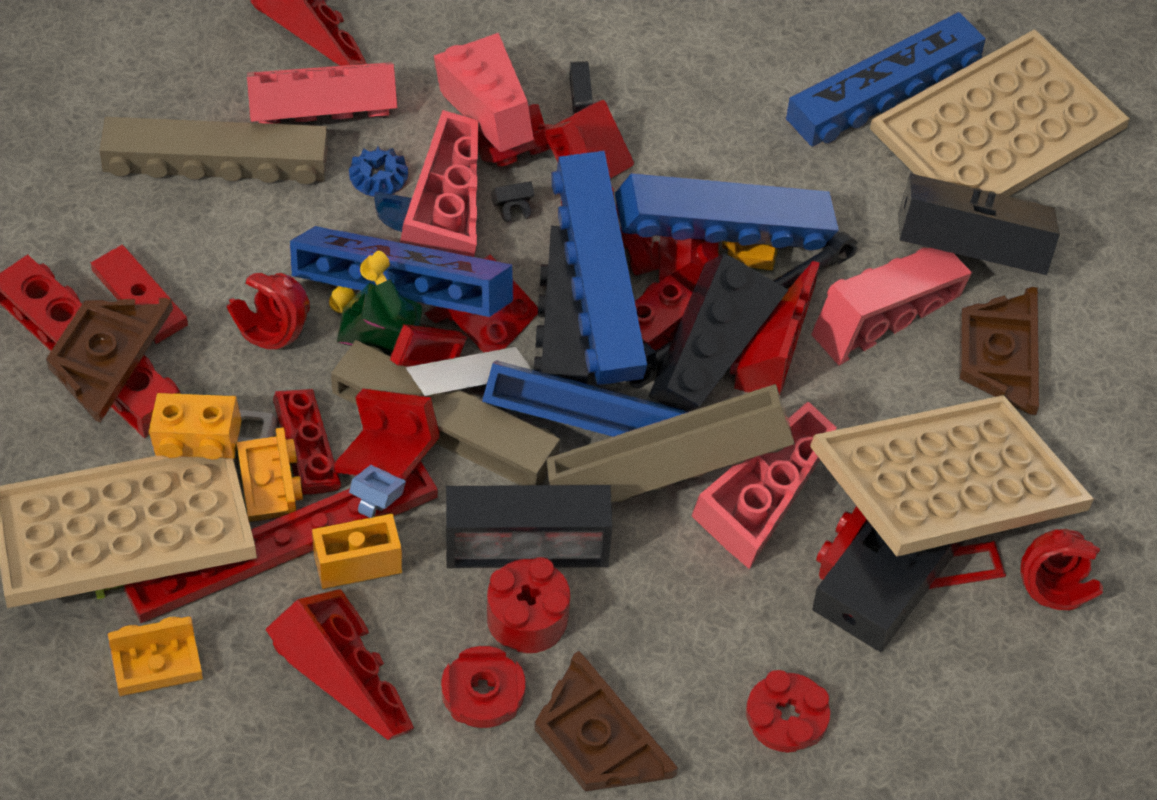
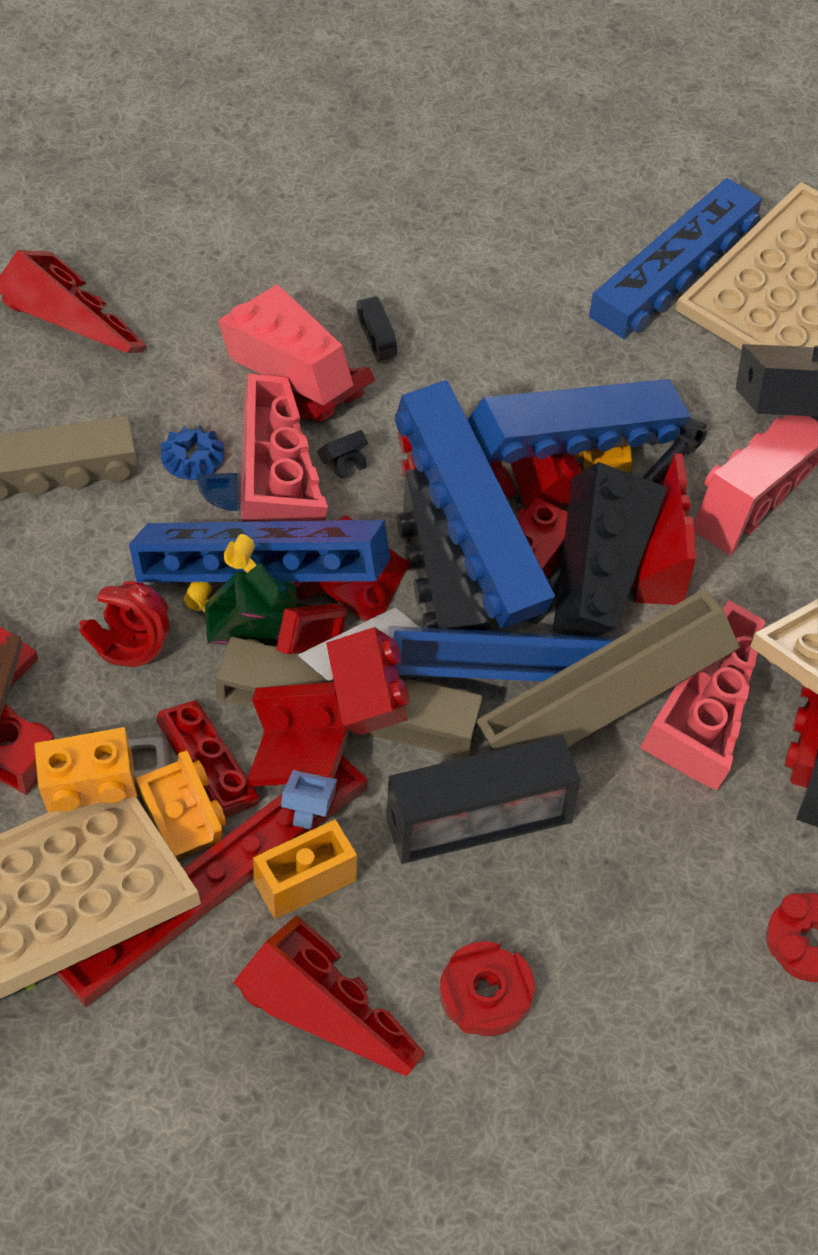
camera: 15 degrees left, 0 degrees up
(155, 655) = (115, 1042): light orange bracket -> none
(321, 91) = (109, 380): coral wedge -> none
(456, 402) = (368, 681): none -> red brick
(528, 605) = (507, 885): red brick -> none
(591, 131) = (398, 371): red bracket -> none
(598, 733) = (626, 1010): reddish brown wing -> none

